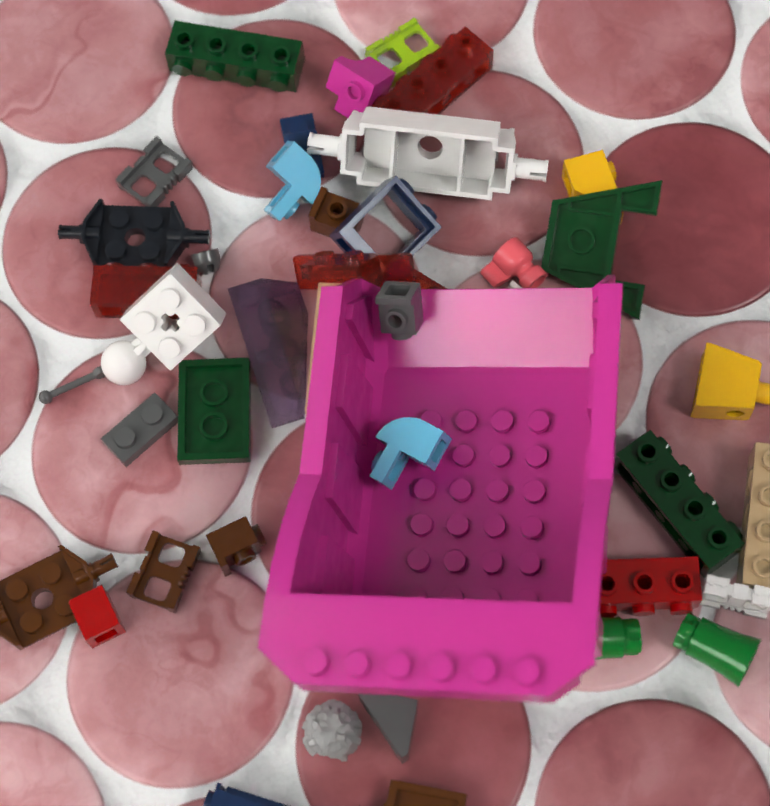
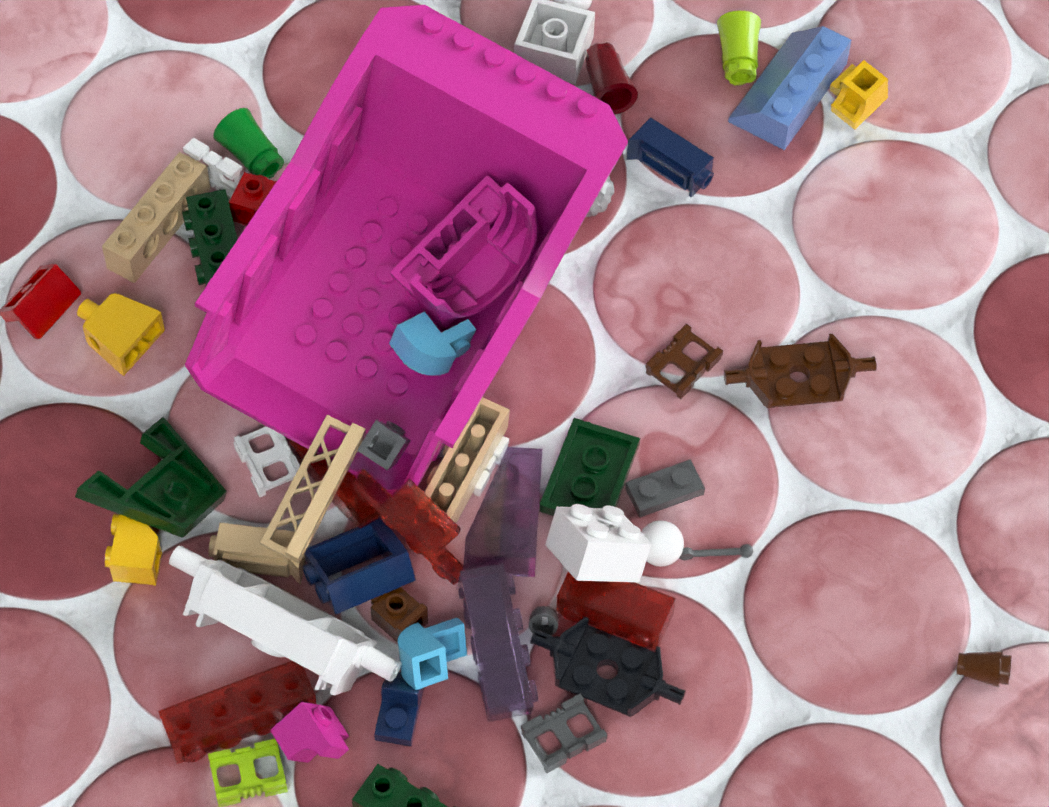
camera: 165 degrees left, 10 degrees down
(96, 616) = (752, 335): red panel -> none
(236, 544) = (613, 355): reddish brown brick -> none
(239, 215) = (497, 642): none -> clear purple wedge
(411, 527) = (468, 257): none -> dark pink piece
(436, 251) = (325, 493): none -> tan fence
(483, 224) = (242, 548): none -> tan window
(512, 261) = (247, 505): coral piece -> none

